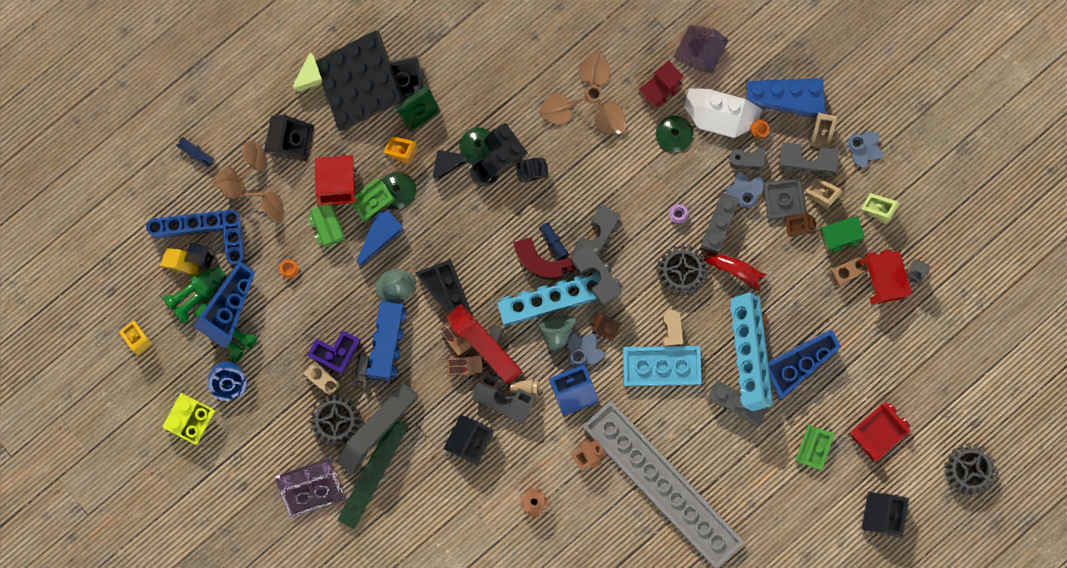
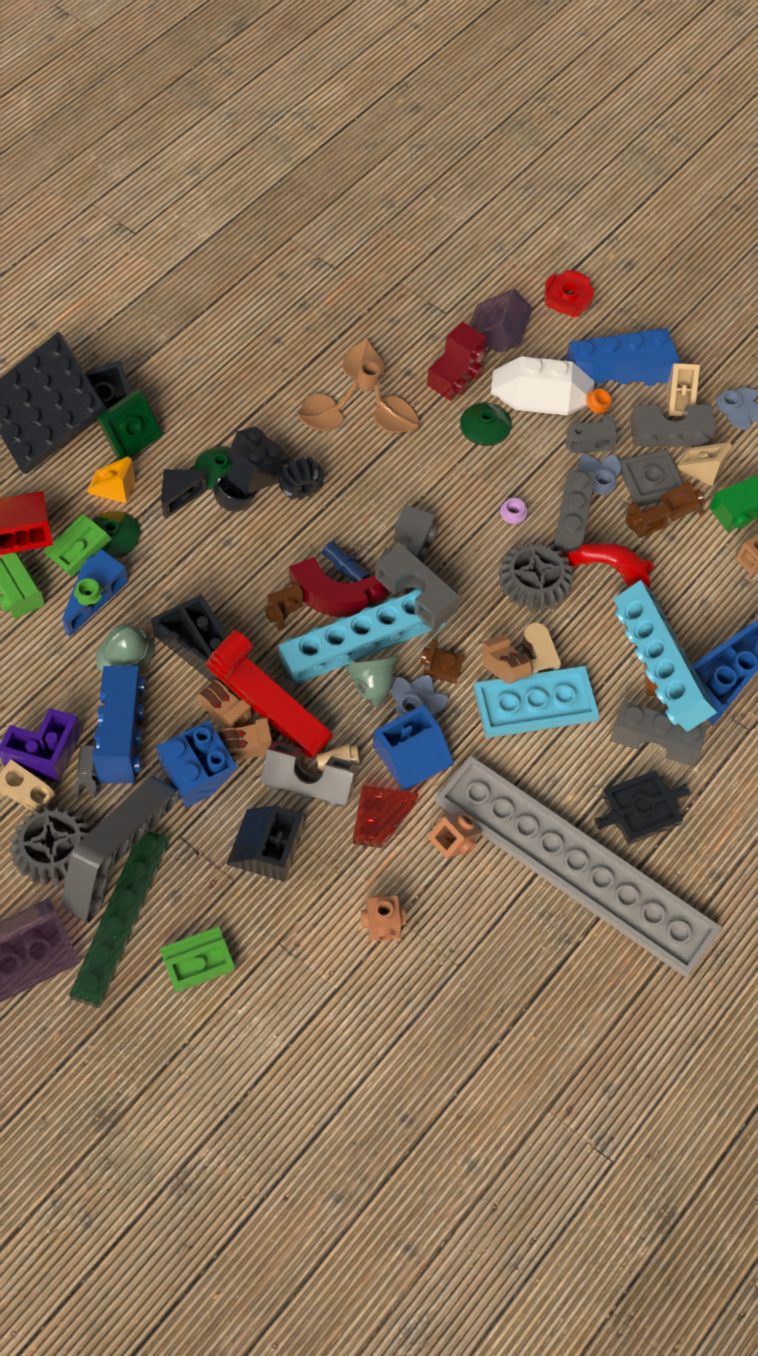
camera: 15 degrees left, 20 degrees down
(370, 245) = (85, 586): none -> bright green plate
(416, 509) = (197, 959): none -> bright green plate
(432, 378) = (196, 763): none -> blue slope
(506, 265) = (281, 602): none -> reddish brown bracket
(545, 431) = (381, 814): none -> clear red wing
(646, 335) = (505, 660): none -> medium nougat leg
(714, 452) = (642, 807): none -> black plate
(759, 15) = (565, 303): none -> red plate
(774, 236) = (648, 522): none -> reddish brown bracket

